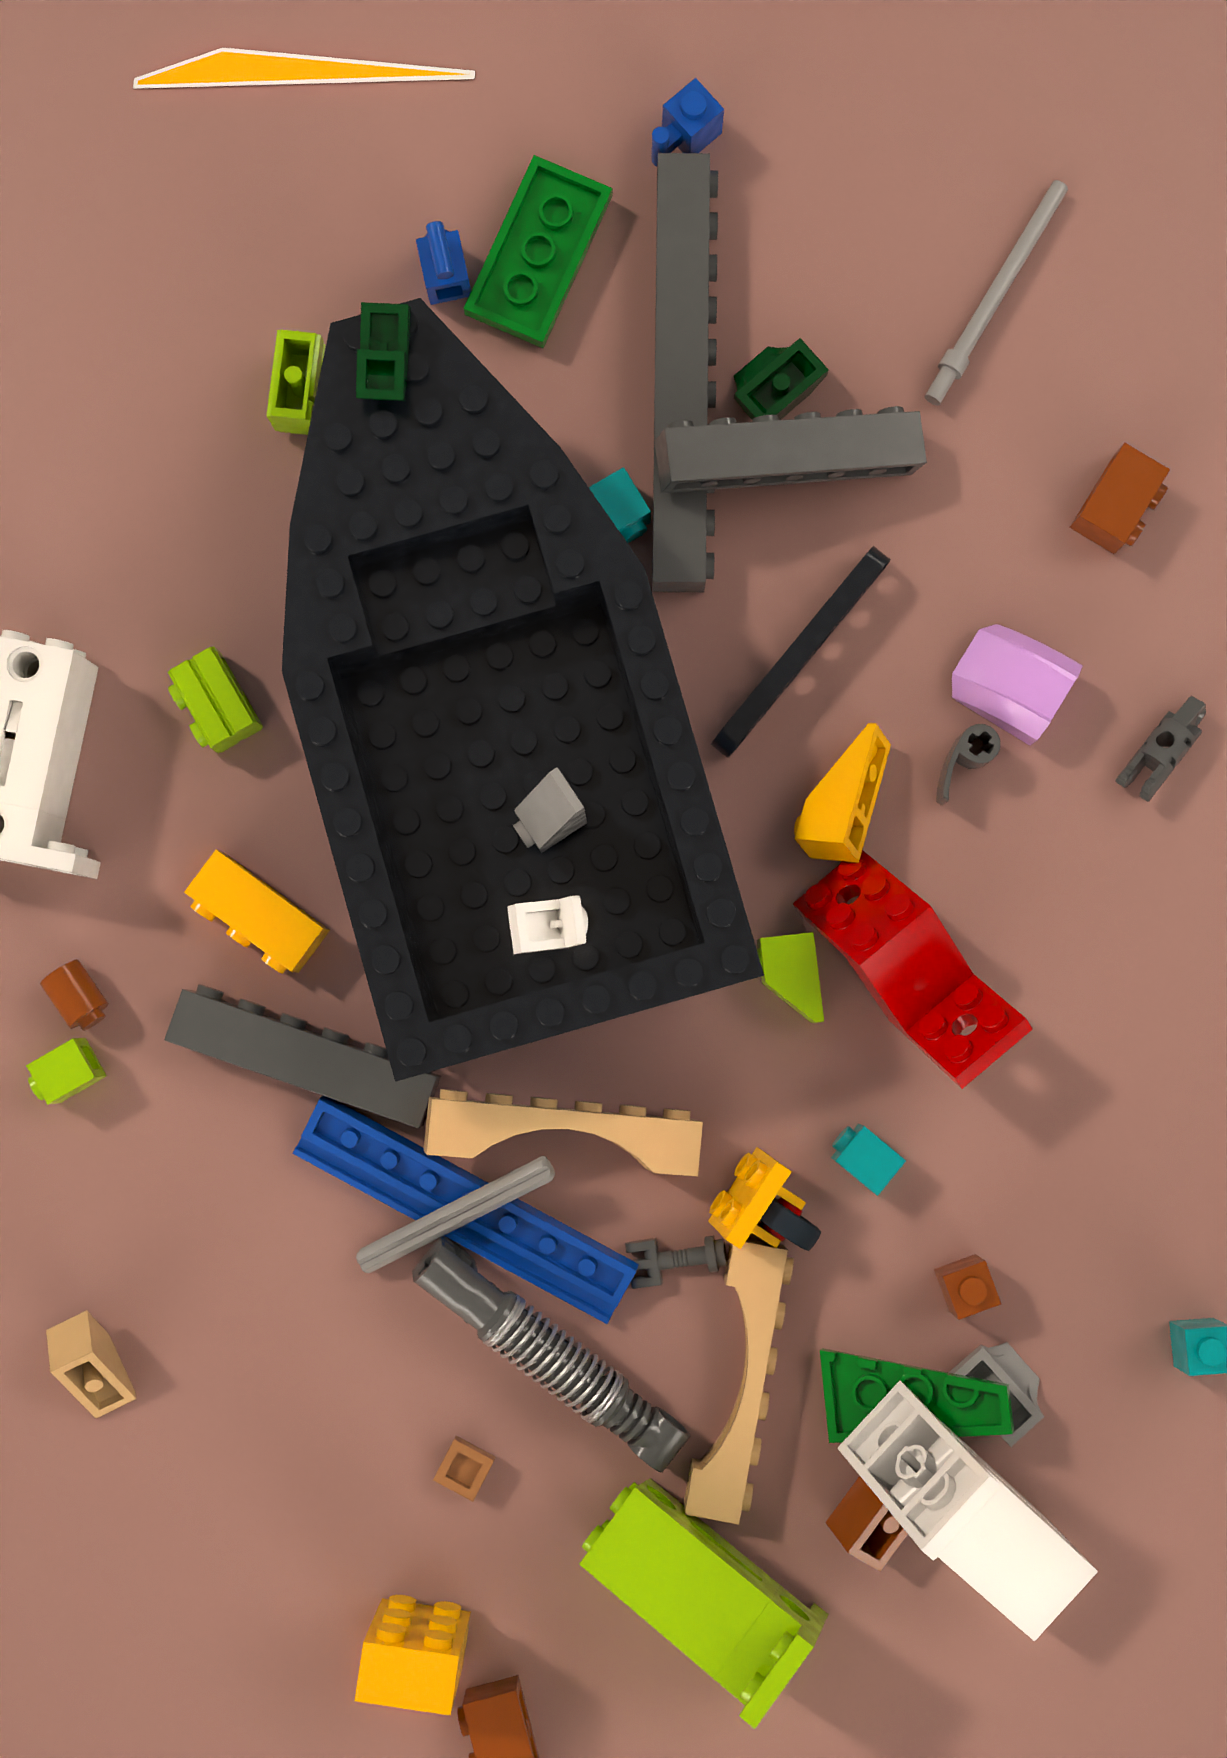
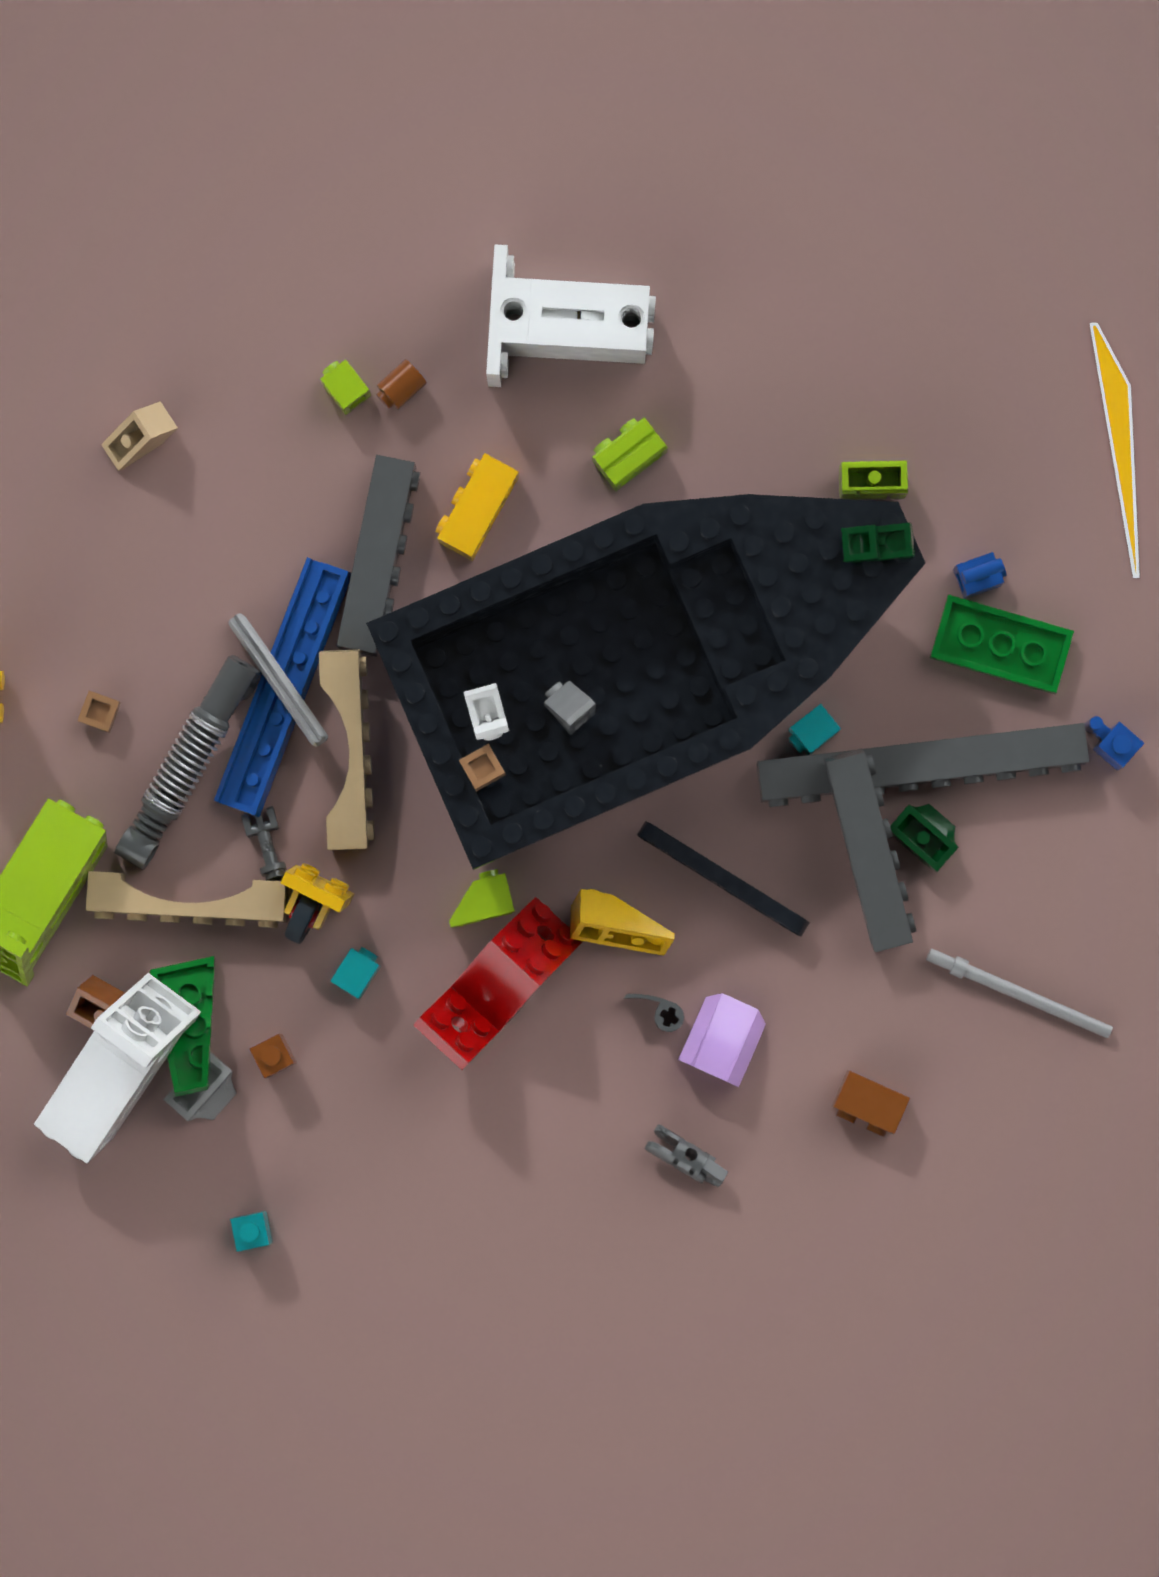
camera: 80 degrees right, 0 degrees up
(624, 941) = (482, 767): none -> medium nougat plate

